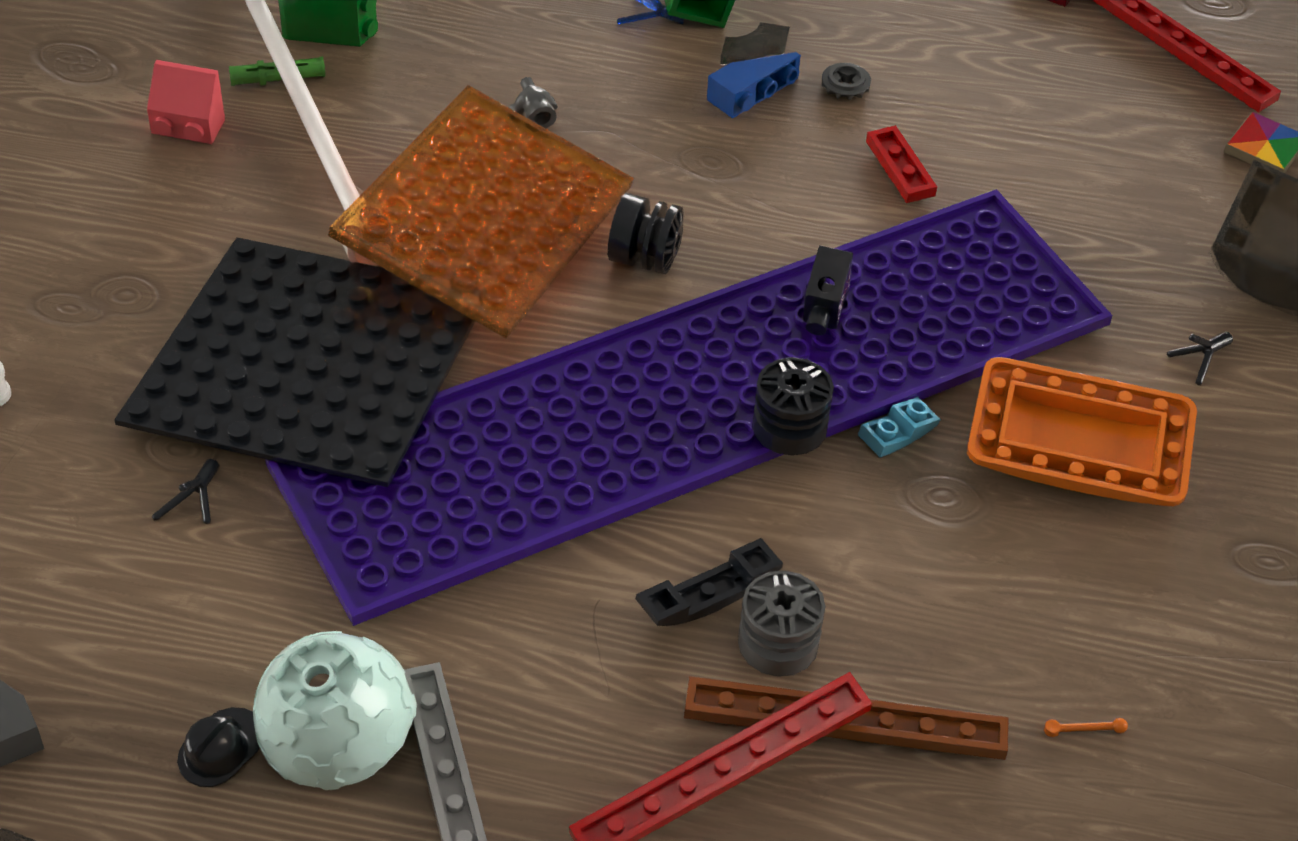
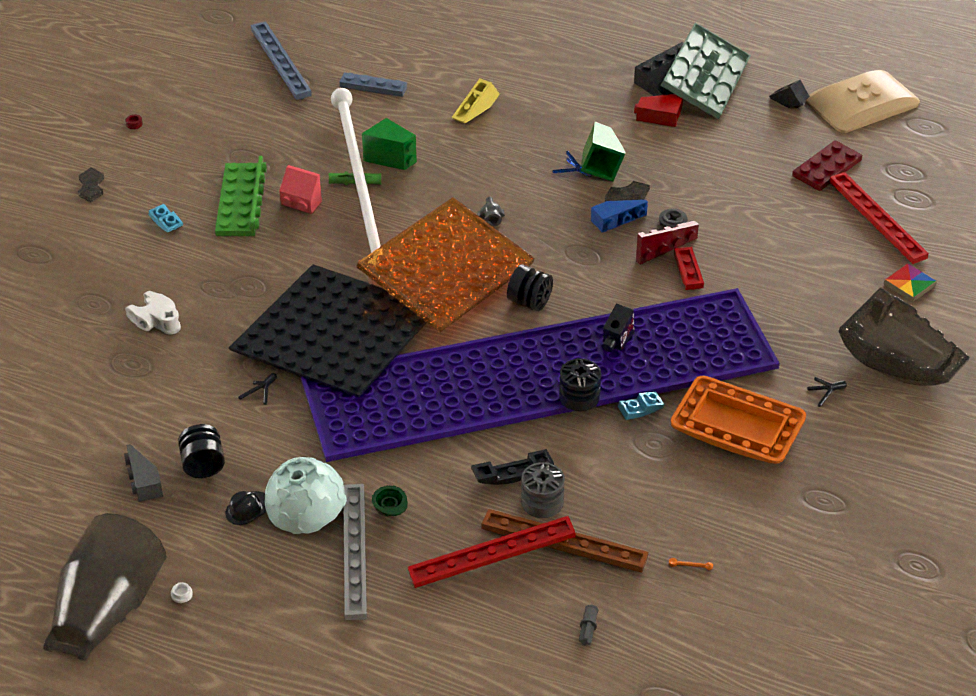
camera: 15 degrees right, 5 degrees down
(76, 132) = (241, 199): none -> bright green bracket
(106, 645) = (201, 451): none -> black wheel
(500, 690) = (390, 500): none -> dark green piece
(845, 122) = (660, 242): none -> dark red wing

